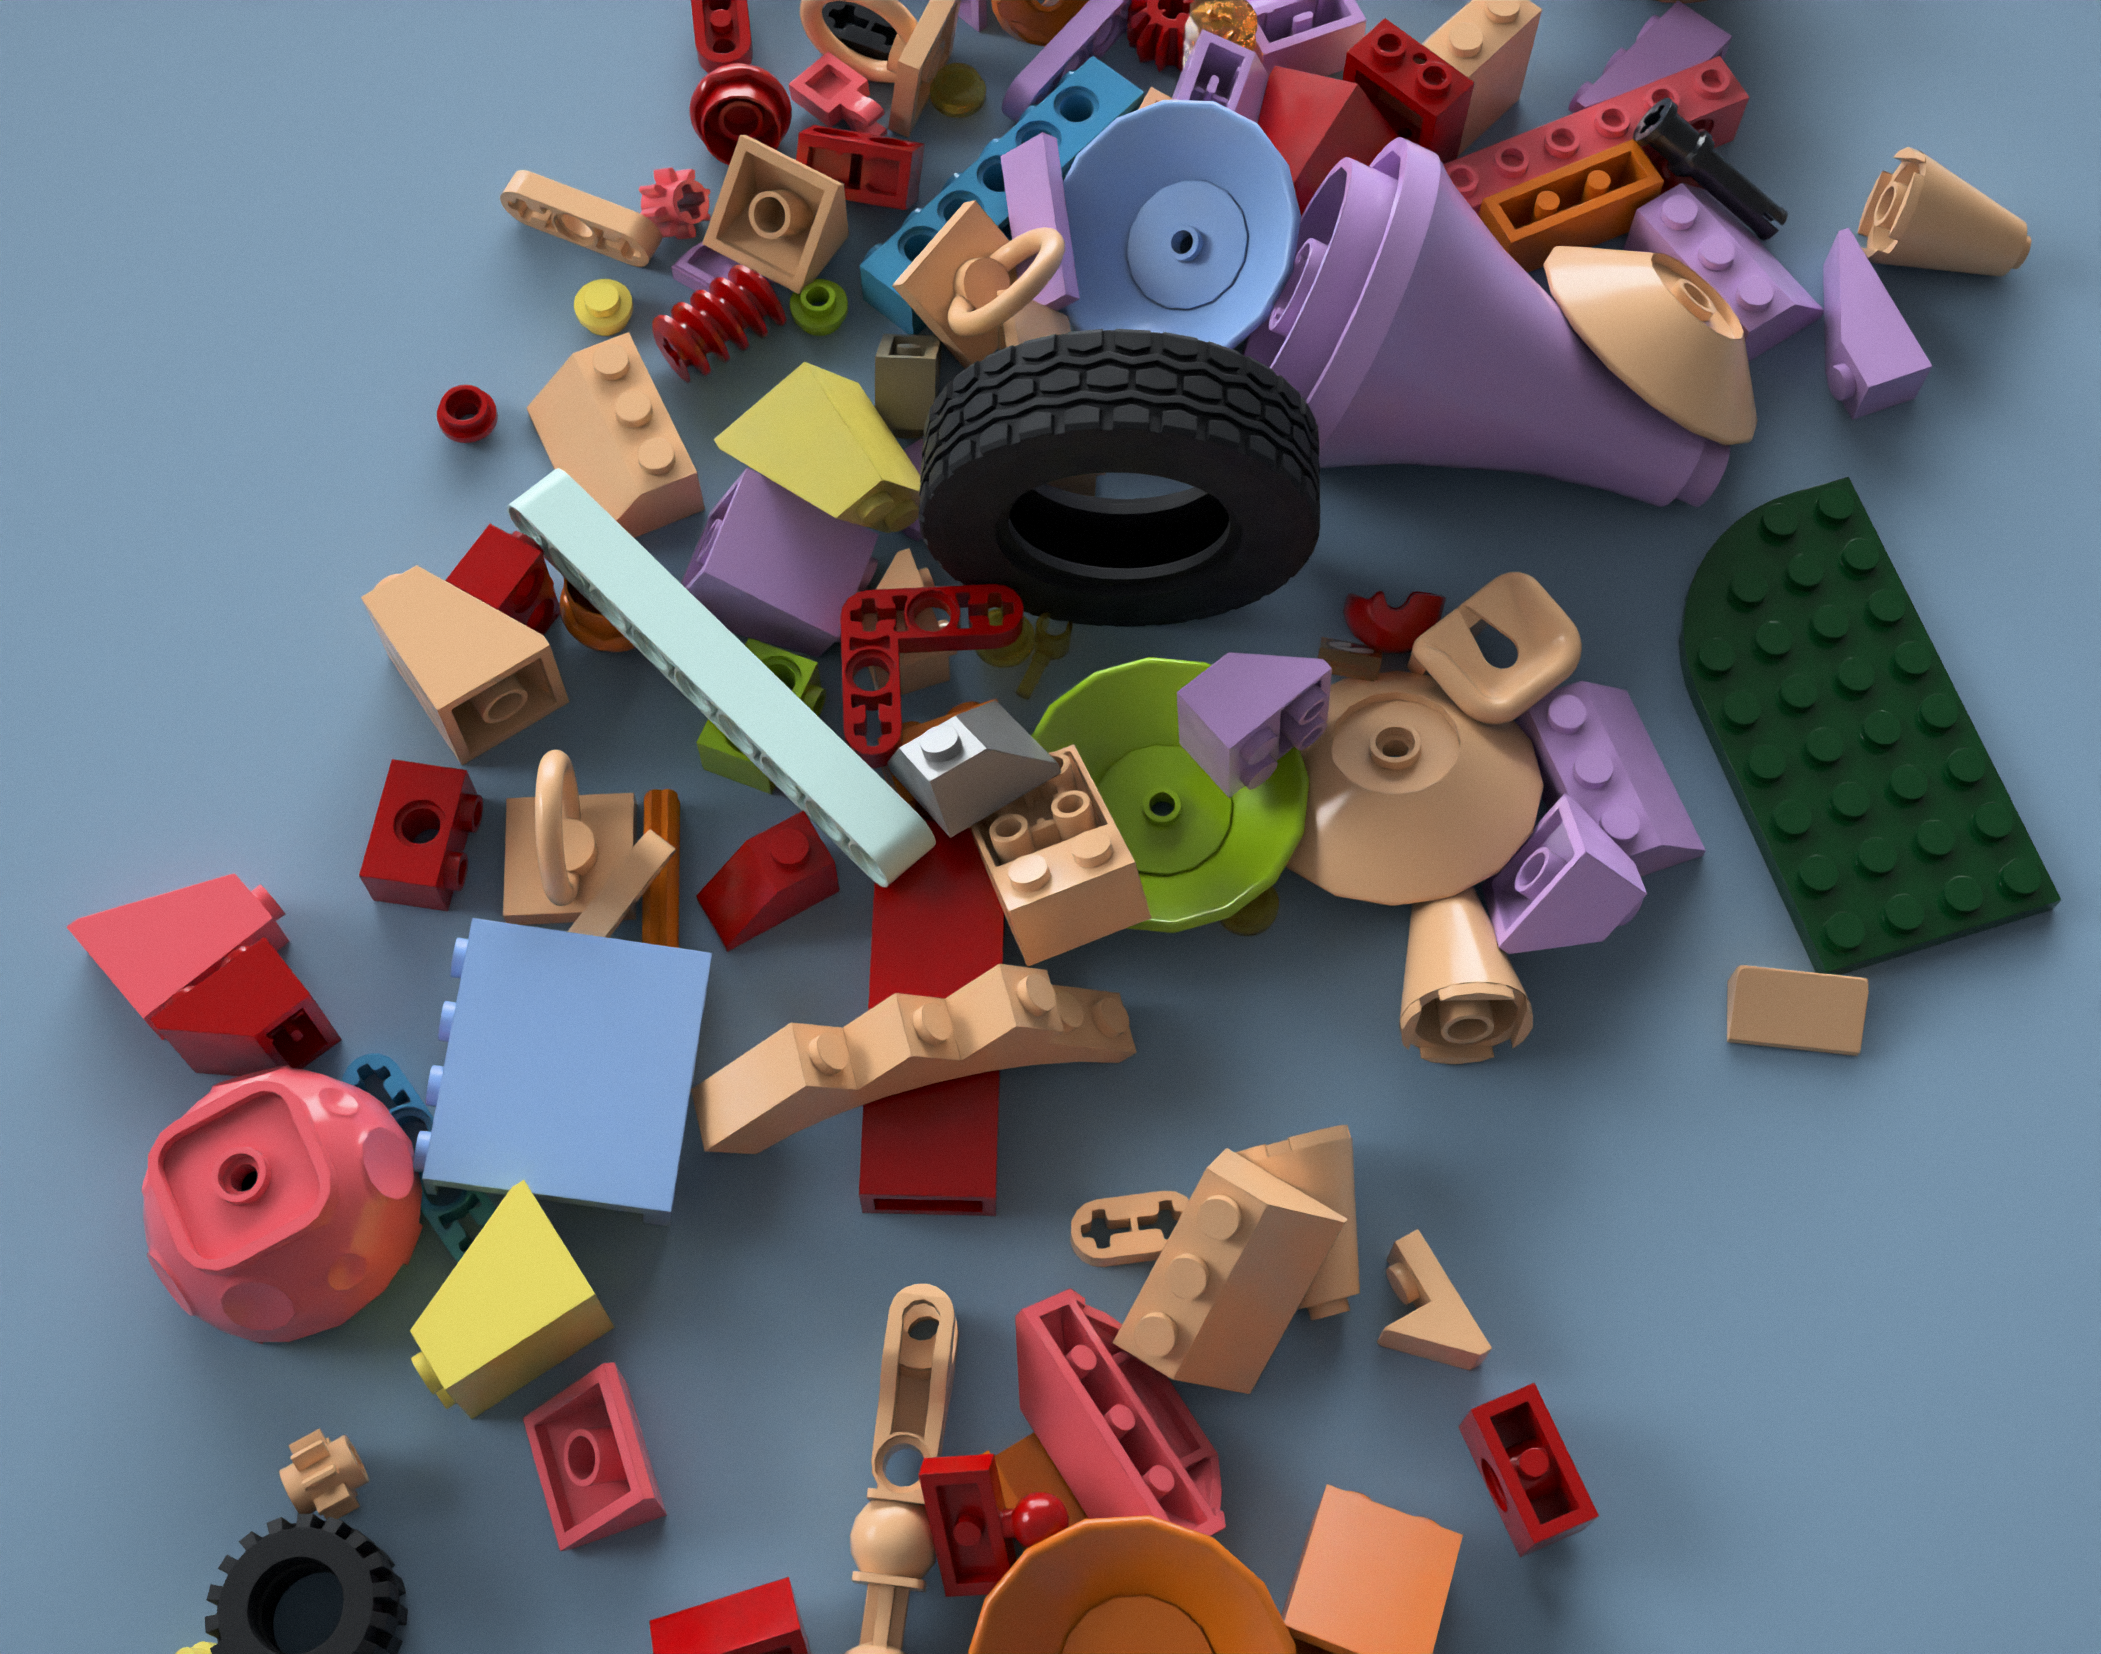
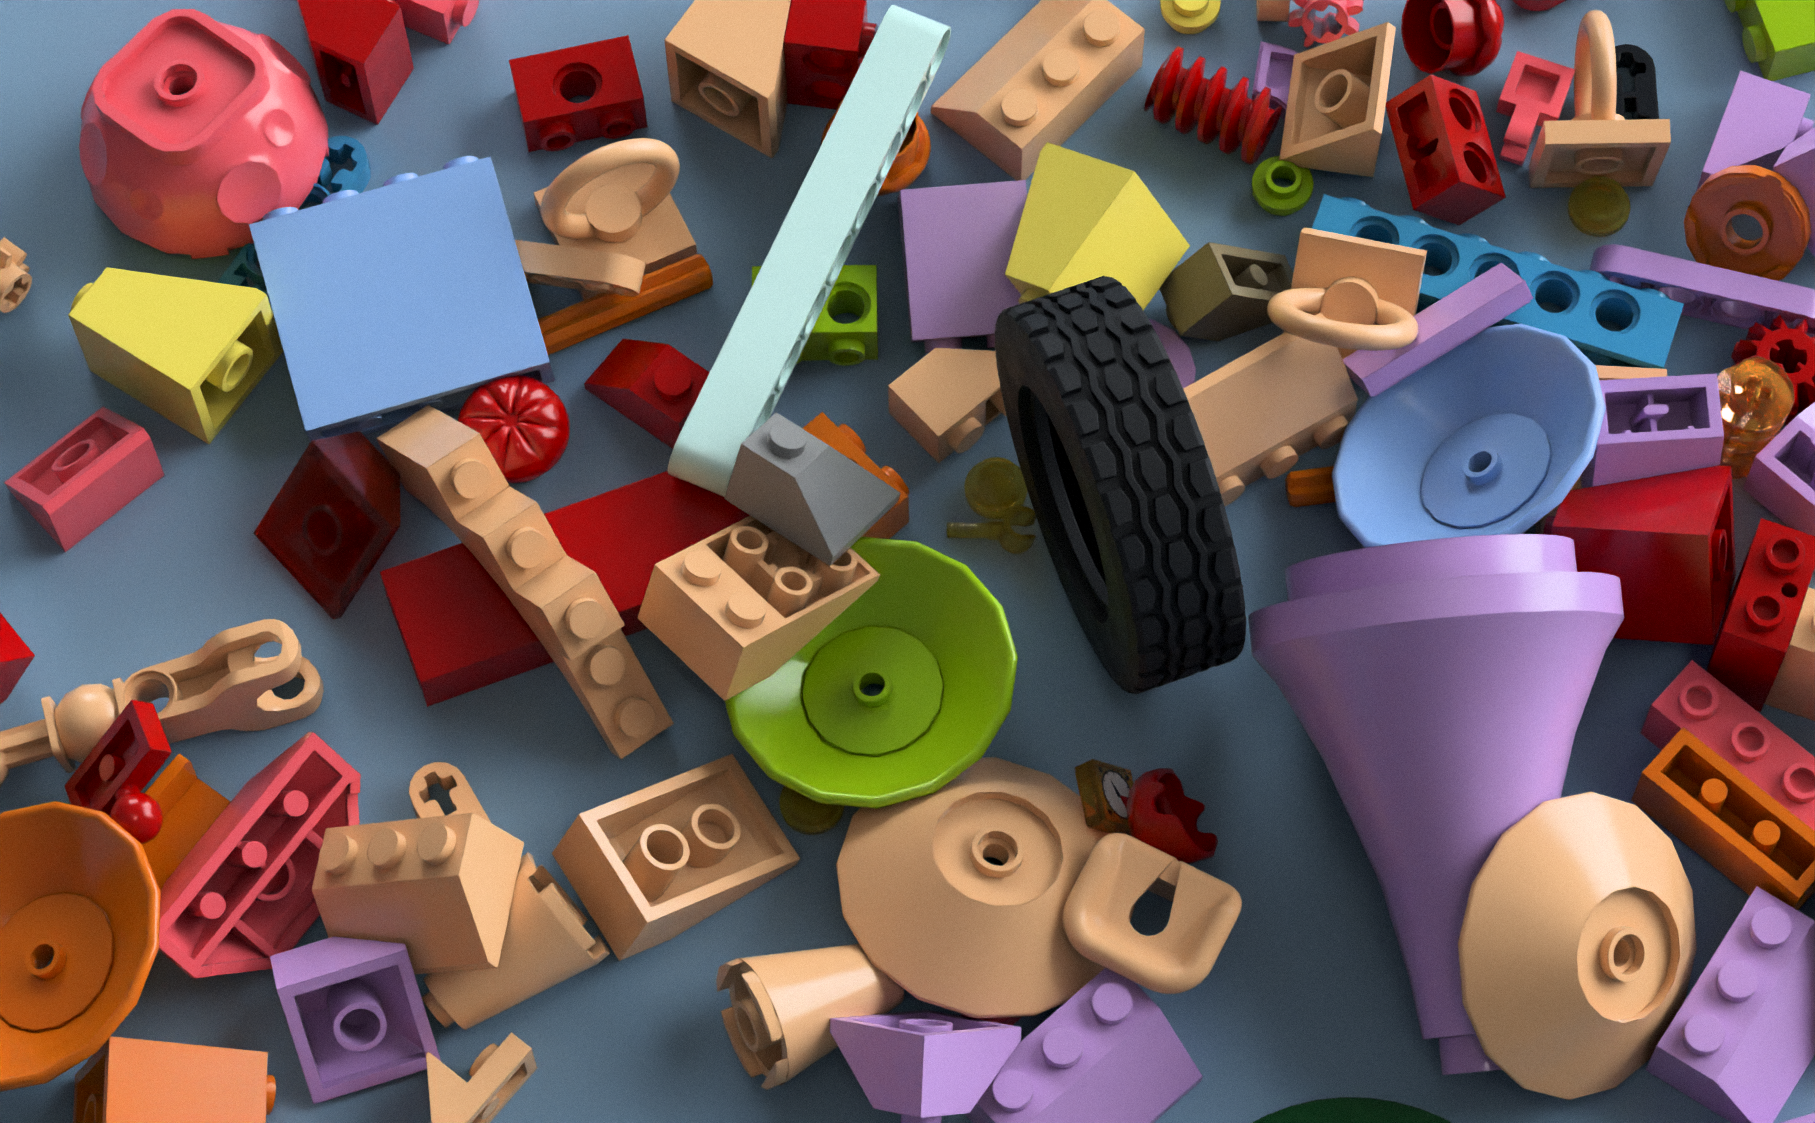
camera: 70 degrees right, 0 degrees up
(747, 1008) = (520, 424): none -> red piece
(776, 1221) = (334, 518): none -> clear red slope
(885, 644) = (911, 378): red beam -> none
(1252, 713) = (938, 698): lavender slope -> none
(1258, 1041) = (672, 854): none -> light nougat slope
(1303, 1392) = (353, 1013): none -> lavender slope

